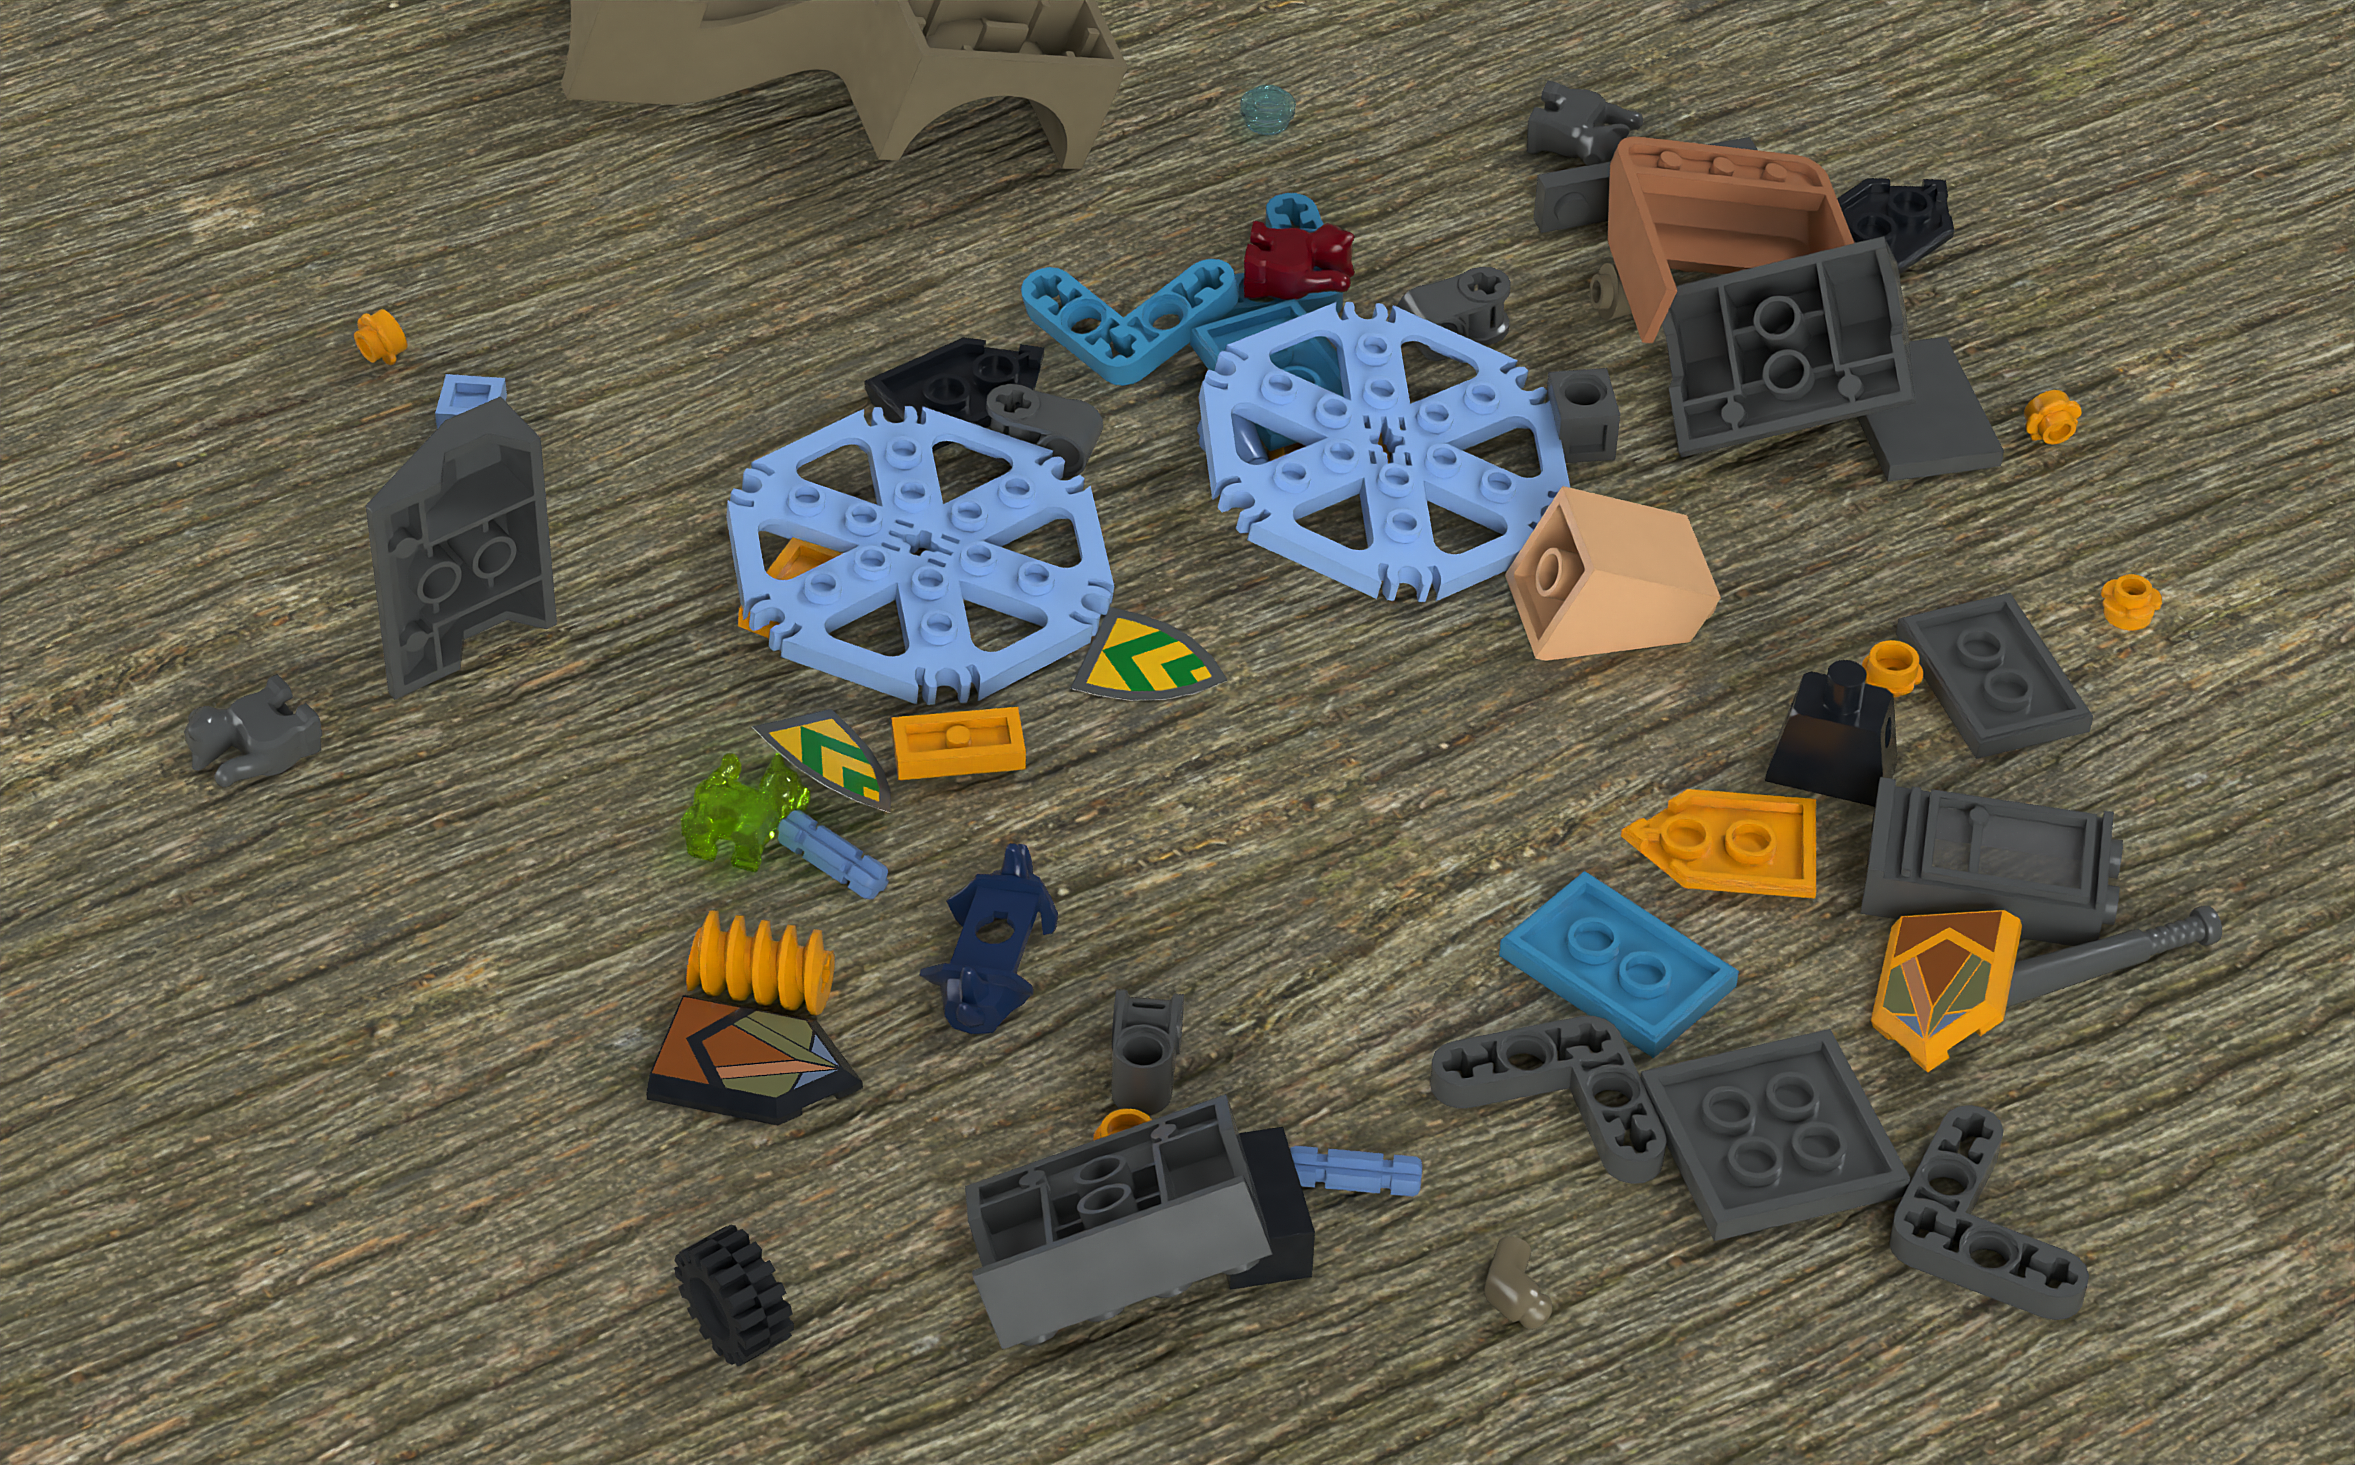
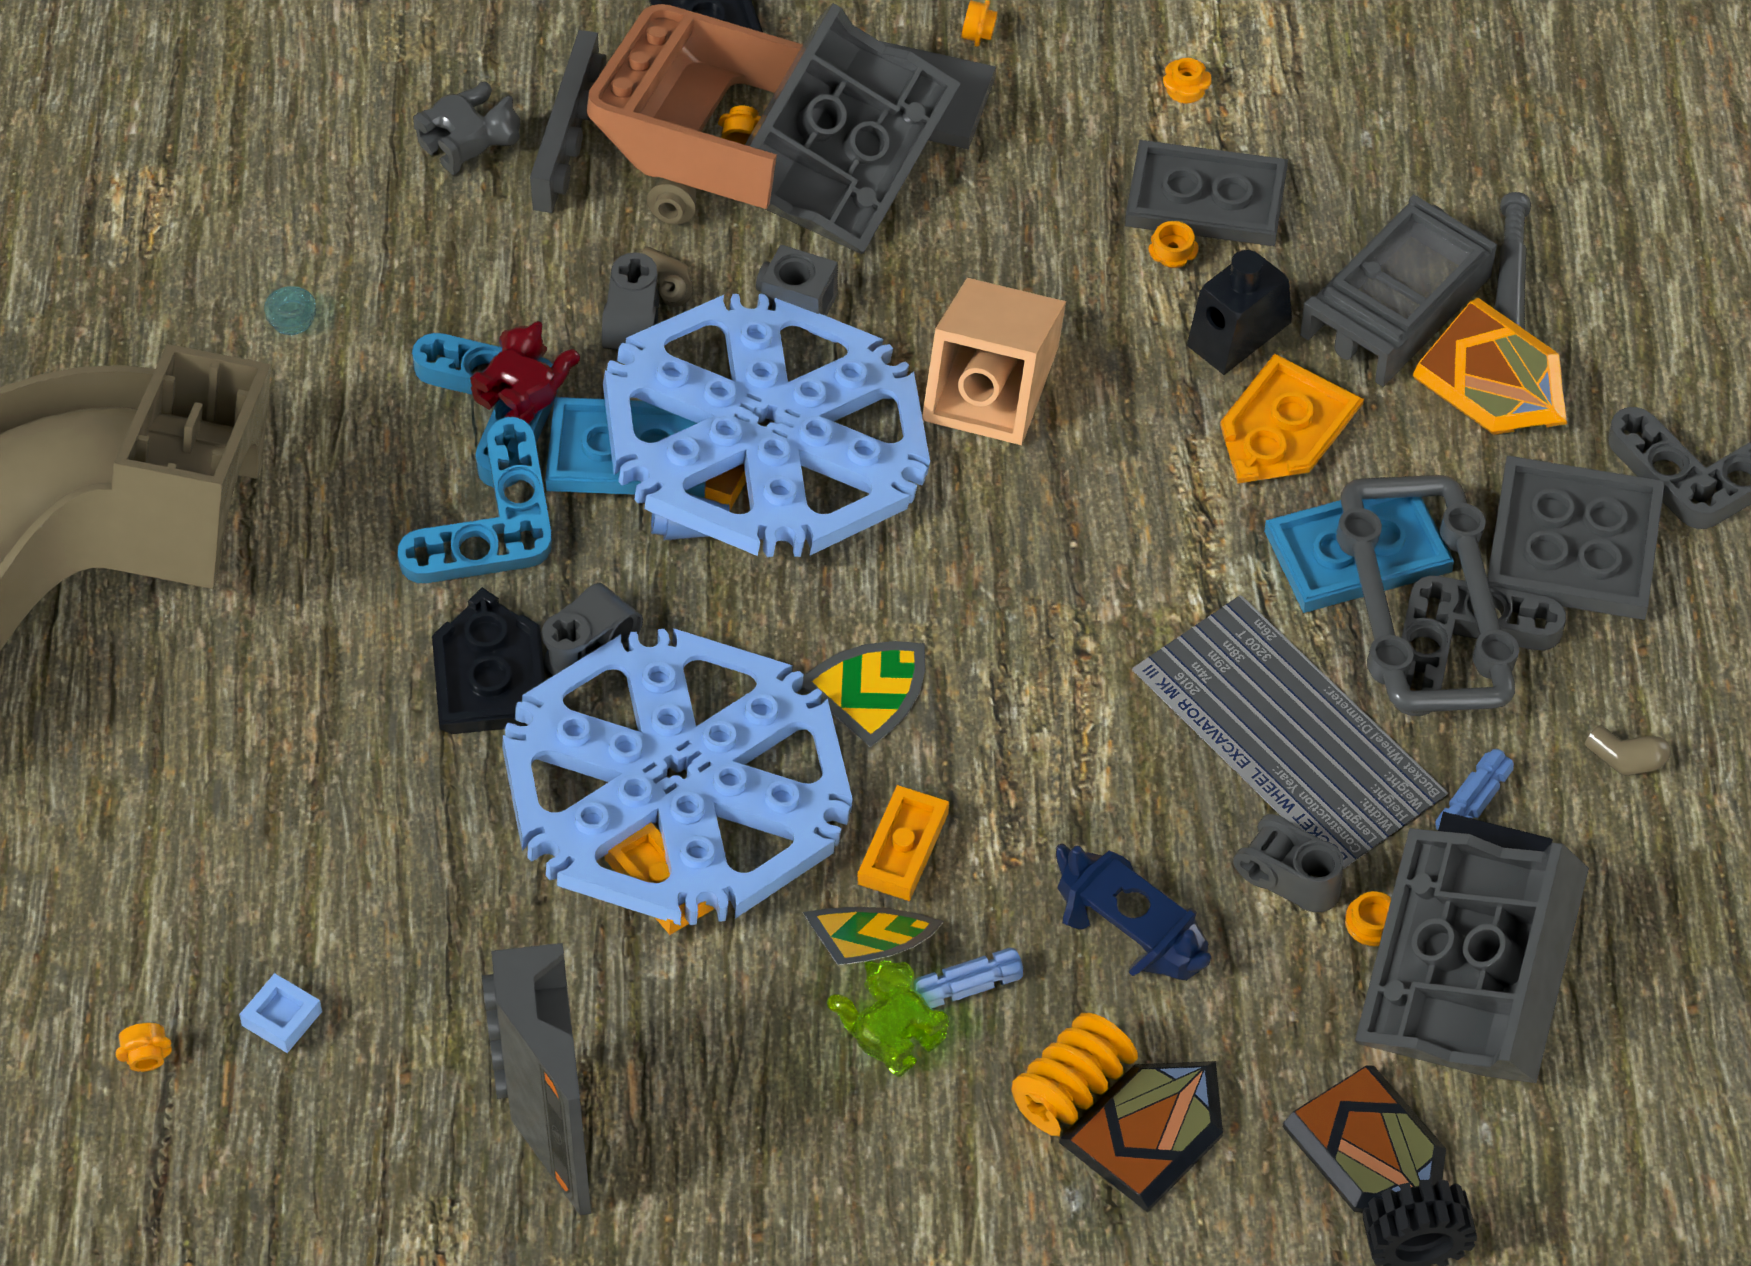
camera: 60 degrees left, 10 degrees up
(846, 1244) = (1366, 1139): none -> tile
(1332, 999) = (1289, 730): none -> sticker
(1525, 335) = (673, 278): none -> dark tan arm
(1541, 1102) = (1392, 655): none -> dark grey bar

